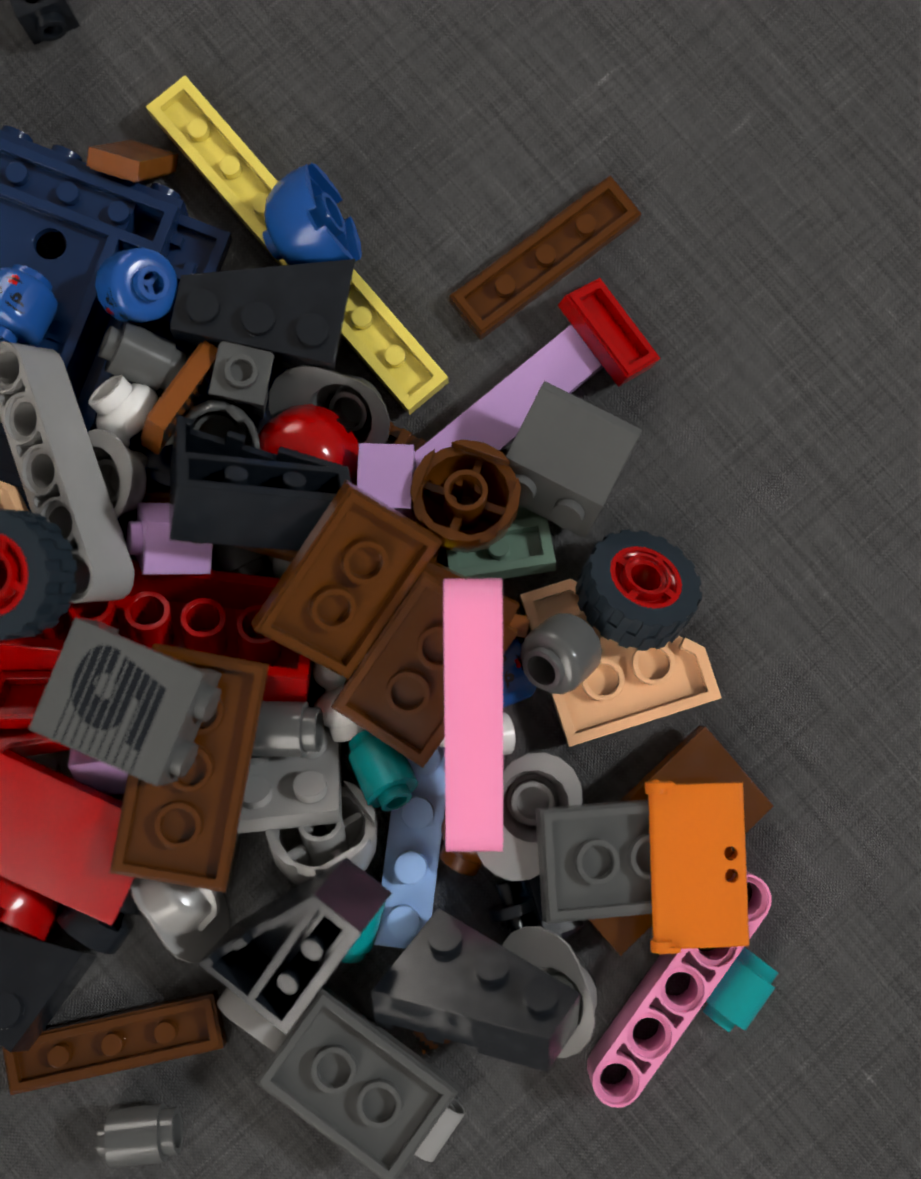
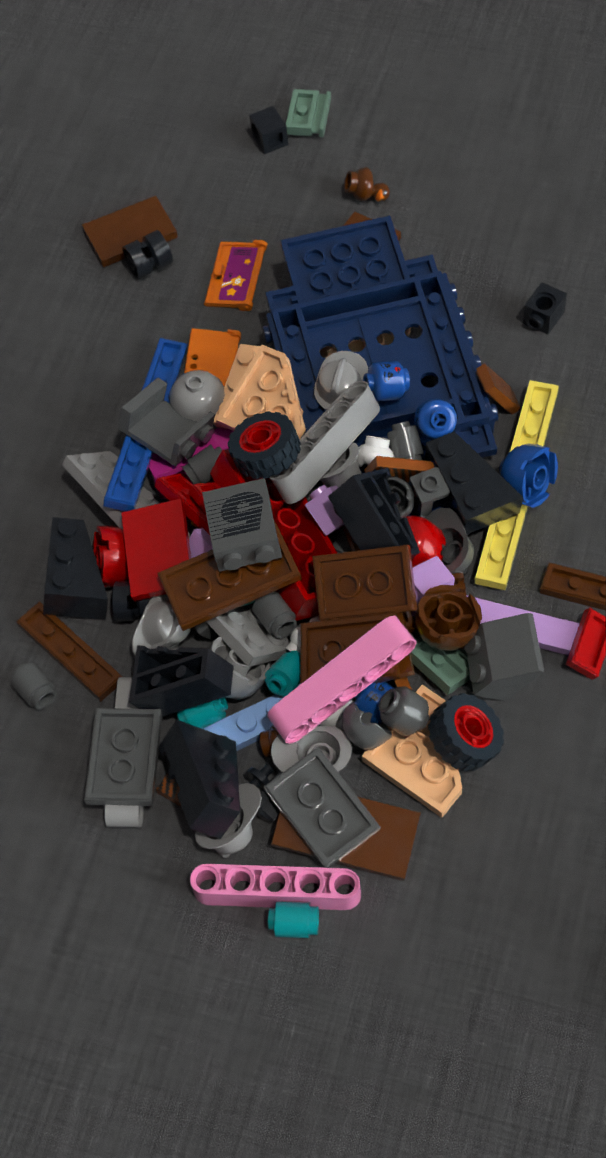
camera: 60 degrees right, 25 degrees down
(546, 726) = (360, 731): none -> dark grey hair
(691, 865) = (341, 839): orange door -> none

